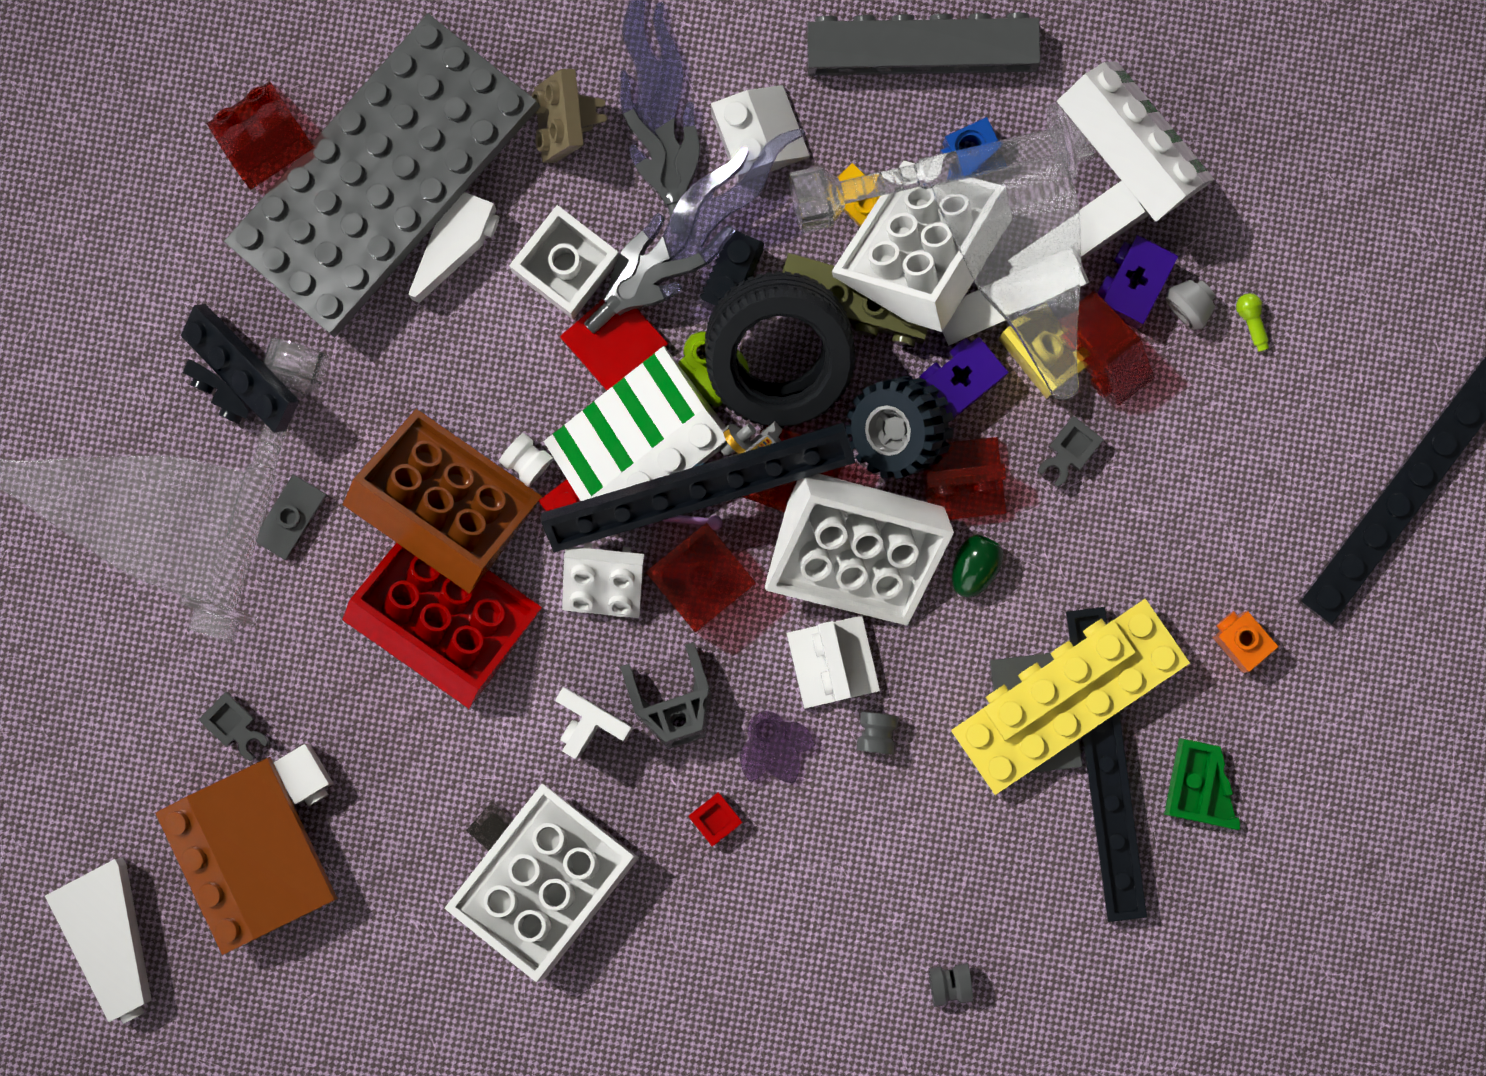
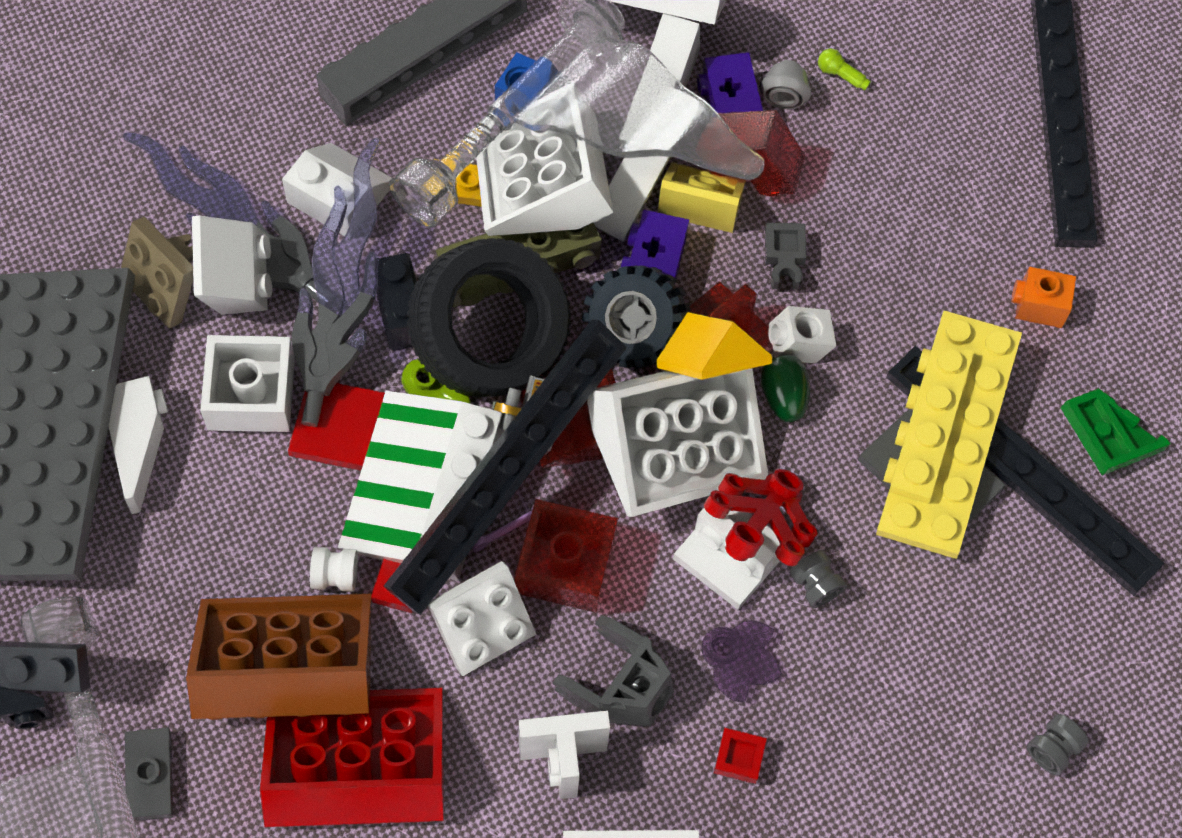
camera: 40 degrees left, 20 degrees down
(618, 153) = (230, 265): none -> white slope
(906, 646) = (745, 539): none -> red plant
(919, 509) = (710, 348): none -> yellow slope
(1035, 536) = (802, 333): none -> white brick

